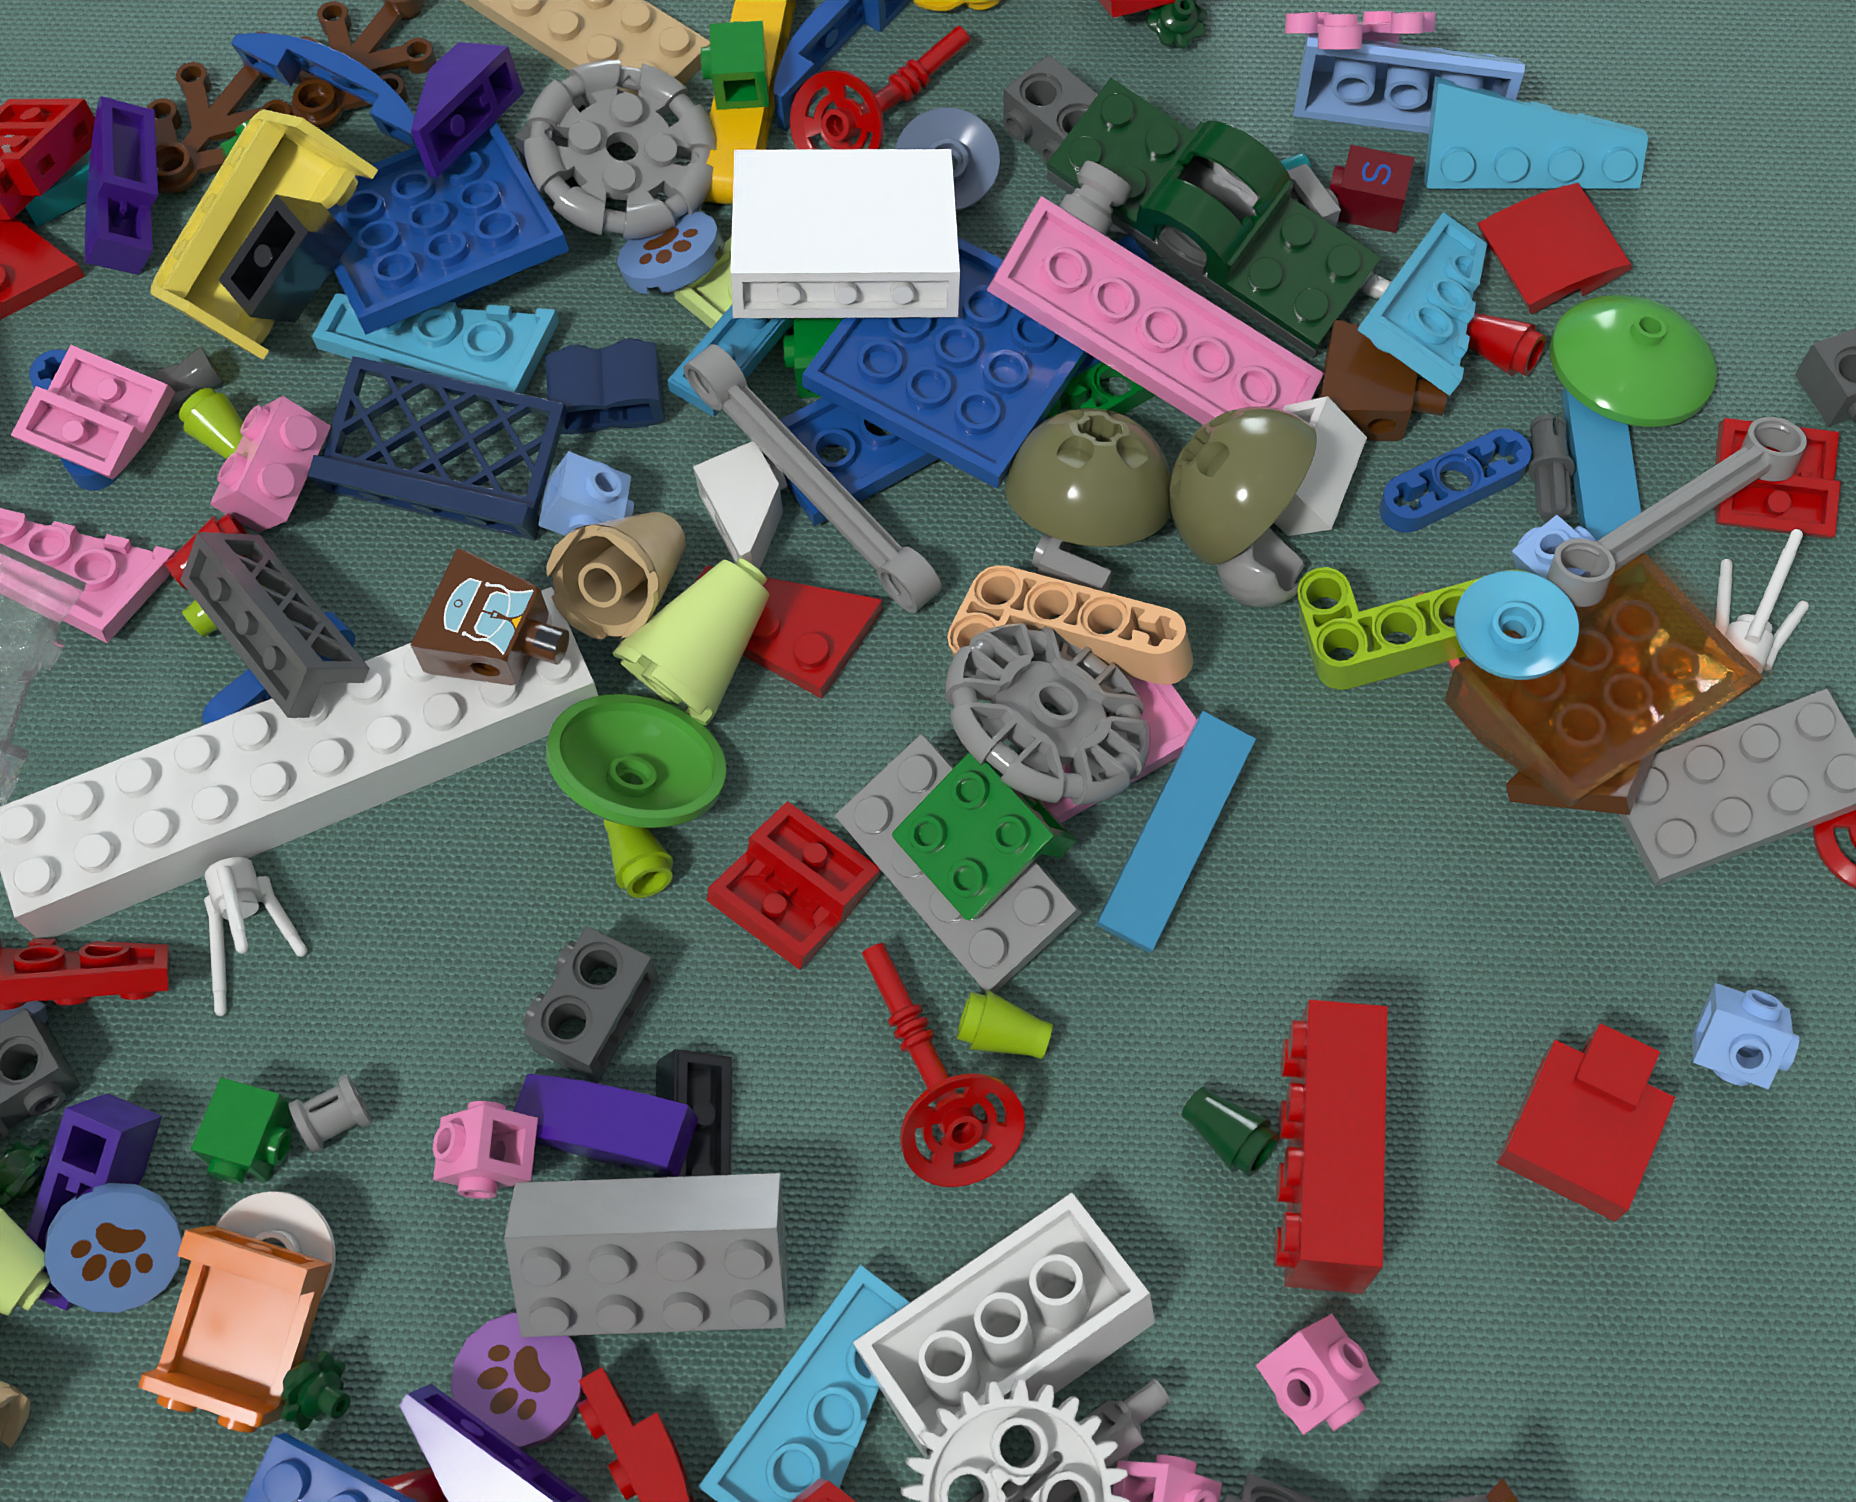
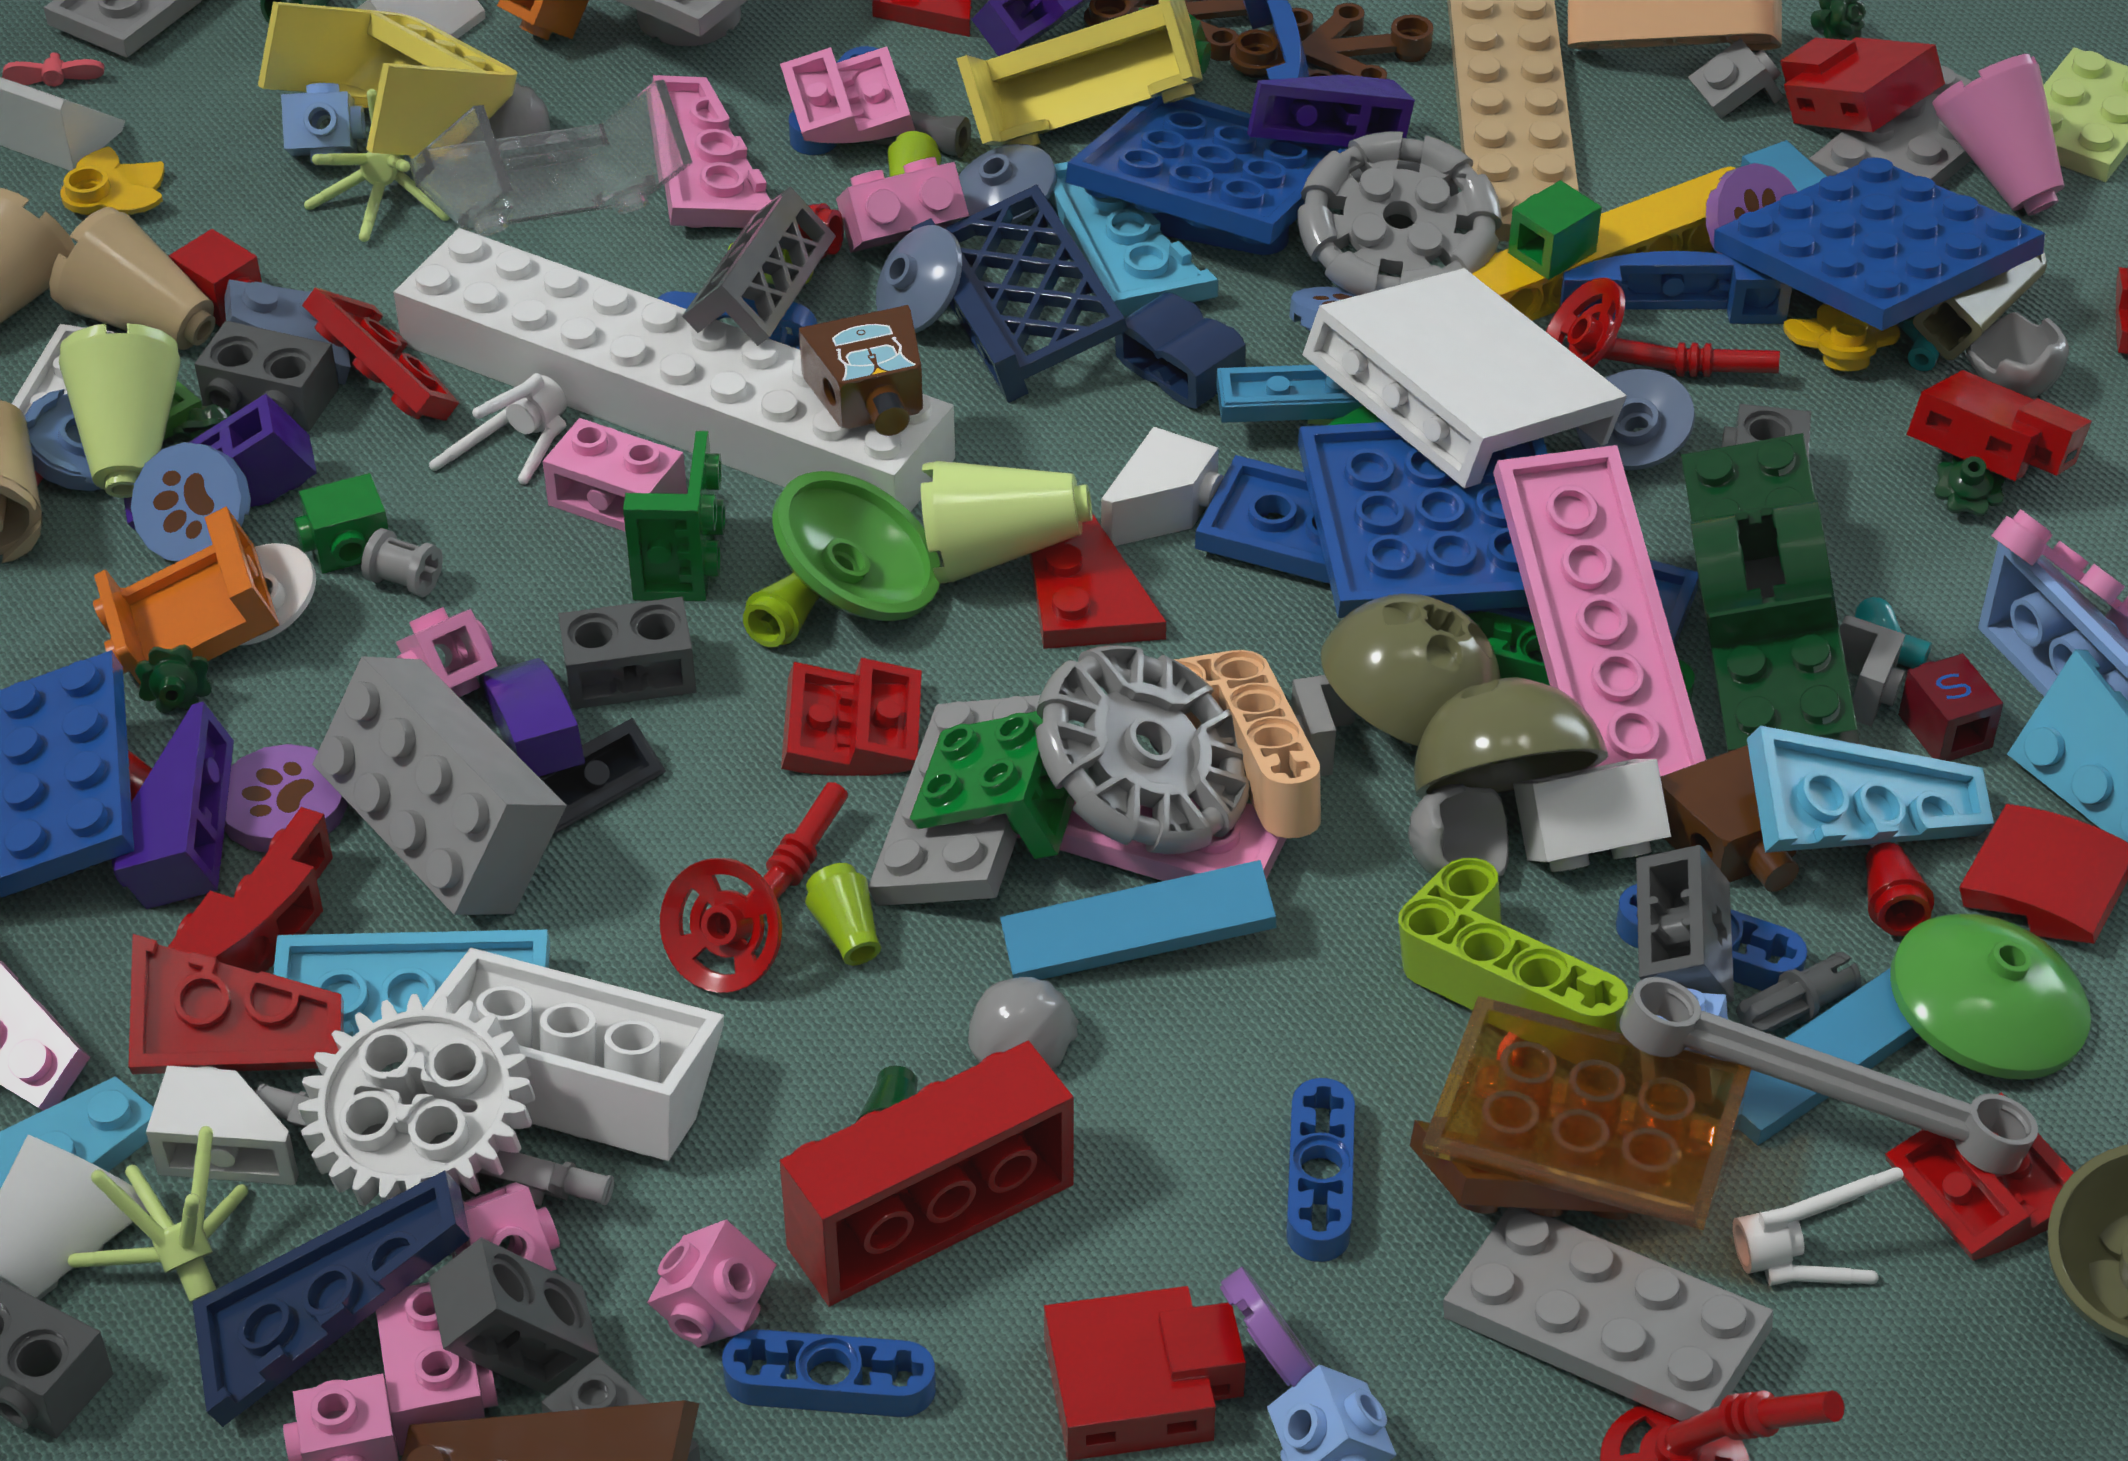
camera: 50 degrees right, 20 degrees down
(285, 259) = (1075, 95): black brick -> none
(322, 371) = (1005, 173): none -> sand blue dish
(380, 883) = (599, 465): none -> bright pink brick
(381, 497) = (921, 274): none -> sand blue dish
(518, 892) = (674, 534): none -> green bracket
(584, 494) = (1059, 391): light blue brick -> none
(615, 572) = (1010, 424): tan cone -> none
(900, 570) = (1208, 574): light grey piece -> none
(1097, 194) = (1667, 492): light grey wheel -> none
(1208, 980) = (1020, 1012): none -> light grey hair
(1481, 1314) = (848, 1396): none -> blue beam
(1482, 495) = (1685, 921): none -> dark grey brick
(1519, 604) = (1552, 995): medium azure dish -> none
(1528, 887) = (1307, 1190): none -> blue beam
(1643, 1014) = (1267, 1327): none -> medium lavender tile

